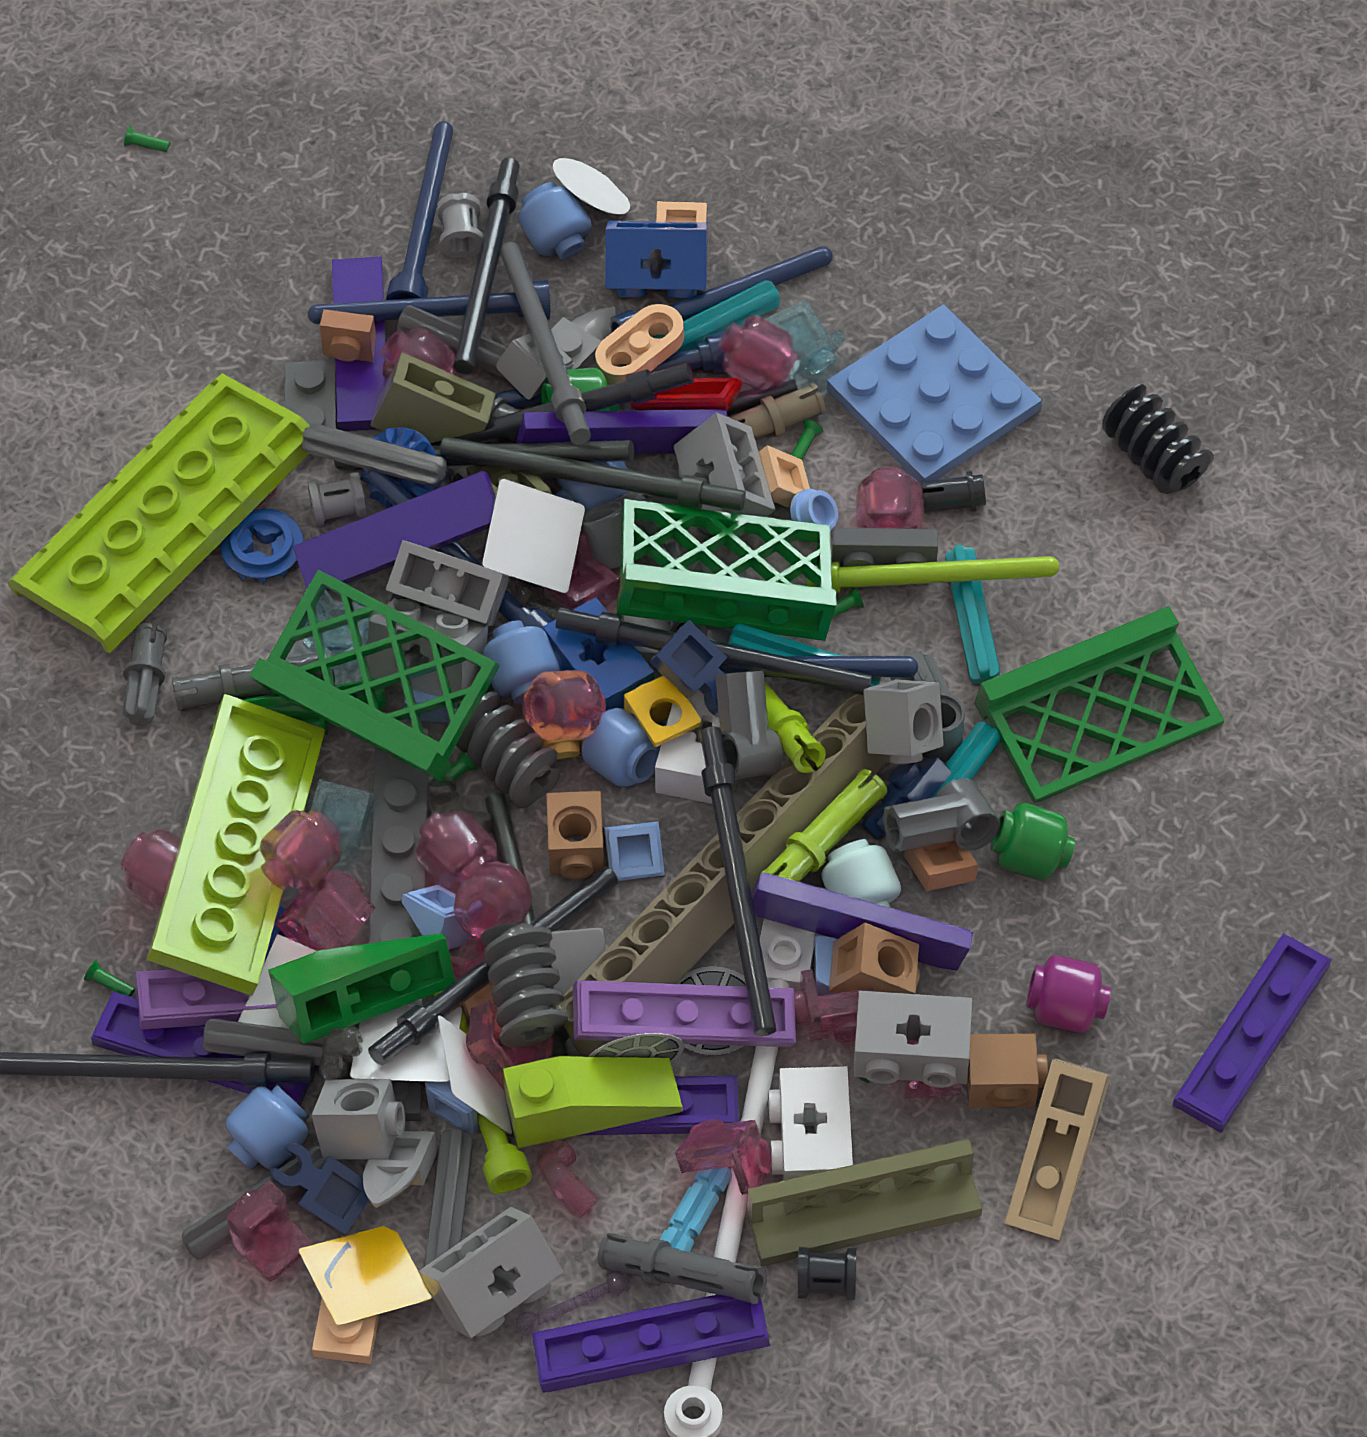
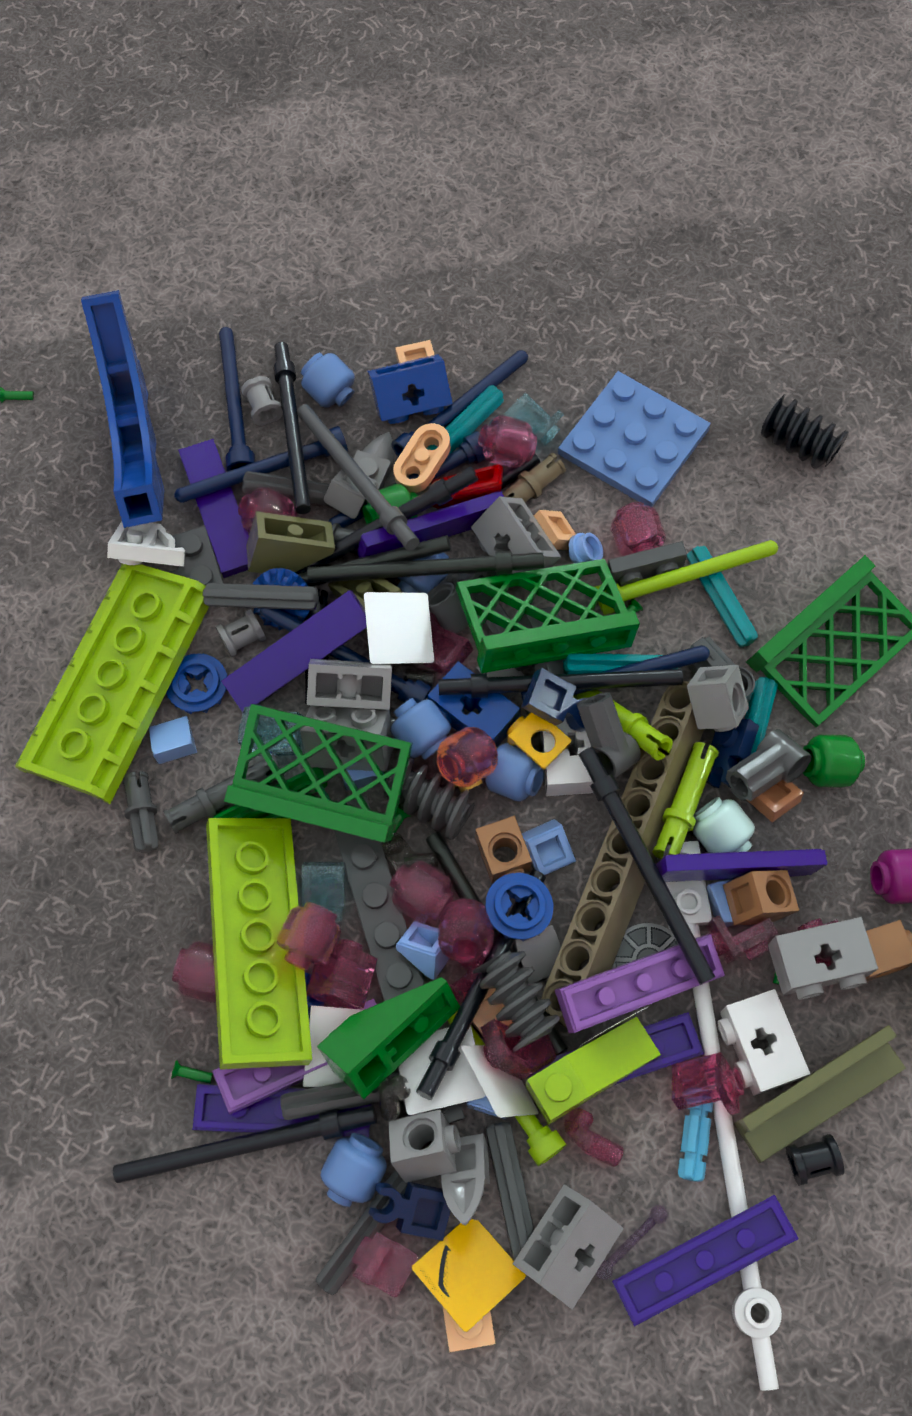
camera: 15 degrees left, 10 degrees up
(209, 604) = (172, 740): none -> light blue slope
(245, 355) = (144, 544): none -> white wing
(268, 273) = (136, 470): none -> blue arch
(348, 336) = (210, 506): nougat plate -> none
(578, 874) = (520, 887): none -> blue gear
(591, 186) = (345, 348): white sticker -> none
(662, 1264) = (711, 1196): dark grey pin -> none
(808, 435) = (558, 486): green piece -> none
(954, 493) = (678, 507): black pin -> none

